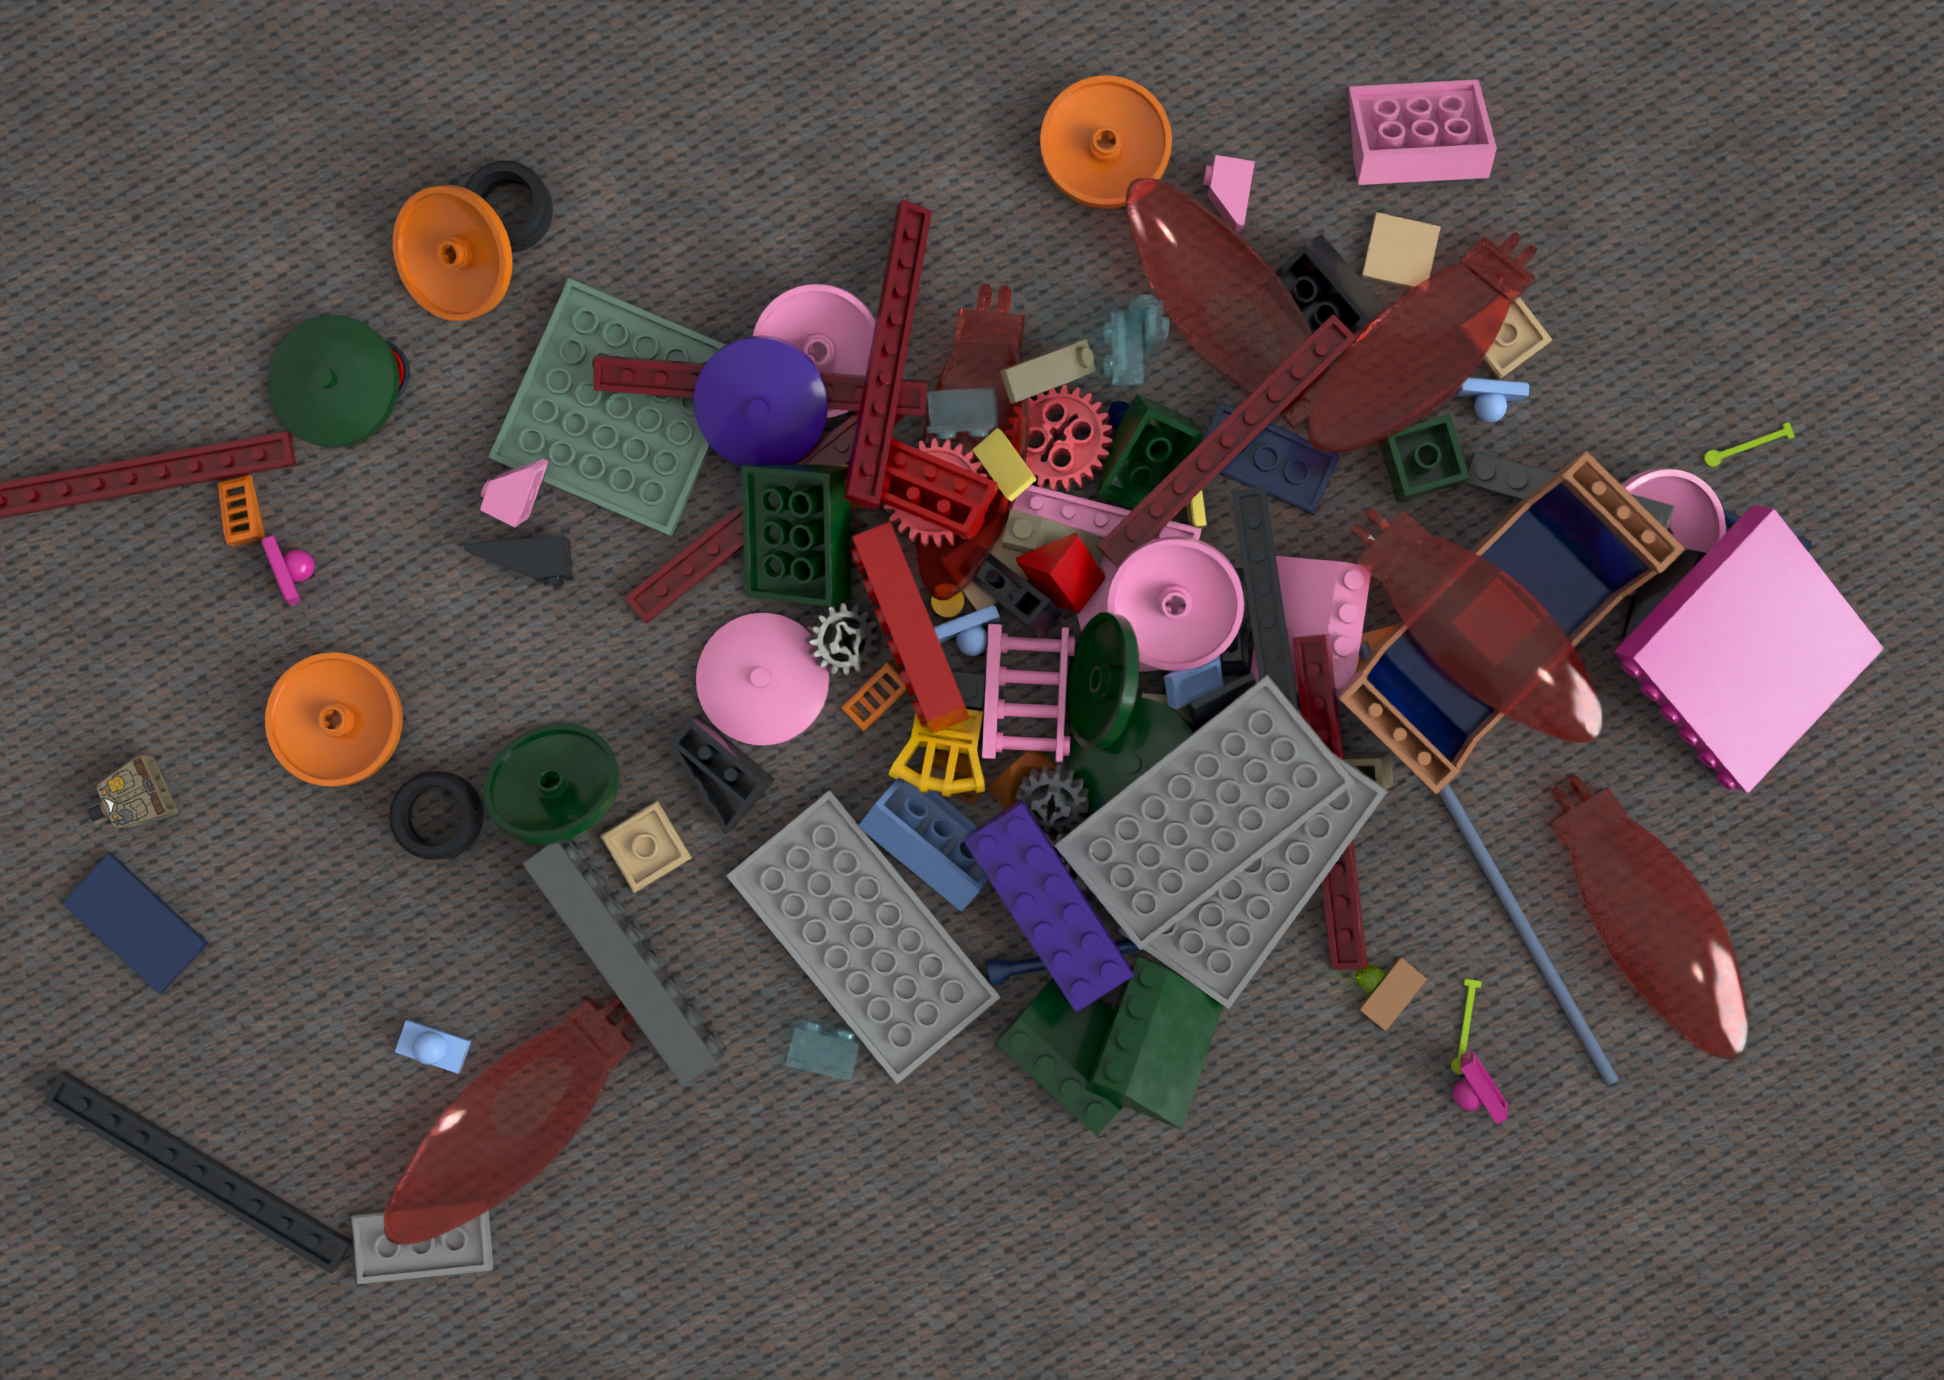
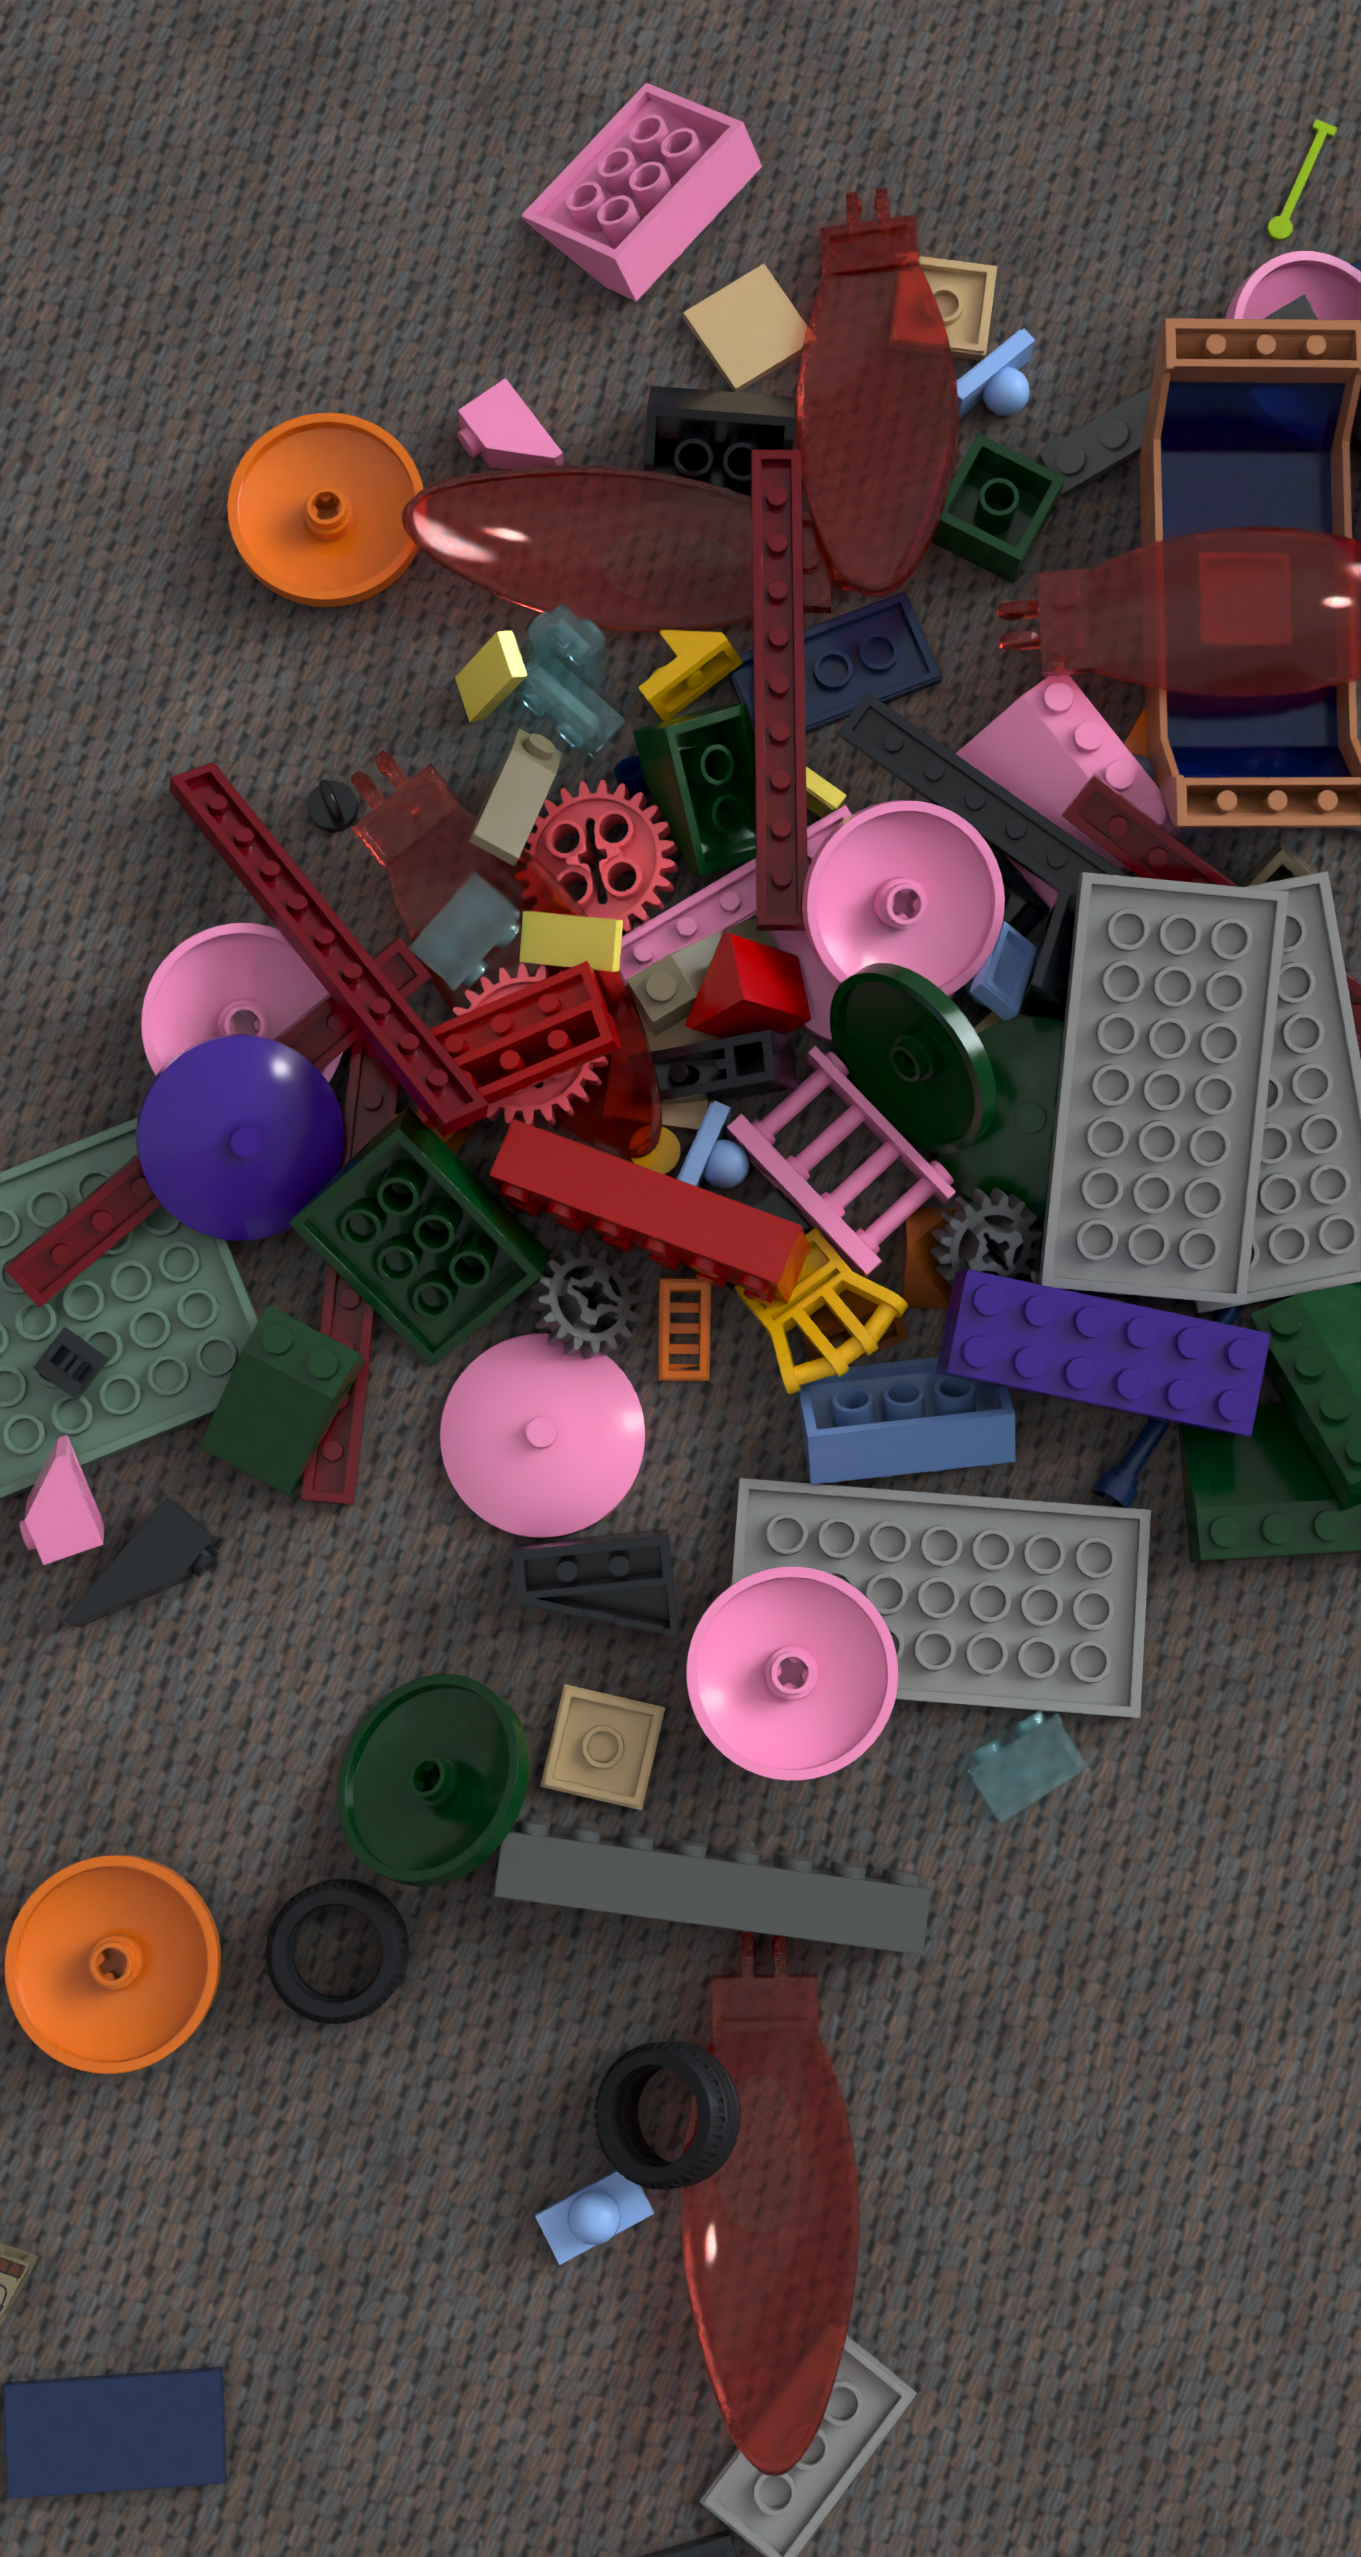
camera: 50 degrees left, 5 degrees down
(481, 1020) = (619, 2121): none -> black tyre
(583, 430) = (71, 1363): none -> black tile
(659, 542) = (280, 1400): none -> dark green slope
(757, 902) = (792, 1673): none -> bright pink dish
(965, 287) = (332, 806): none -> black tile
(1099, 300) = (491, 676): none -> light yellow tile
(1202, 393) = (699, 665): none -> yellow slope

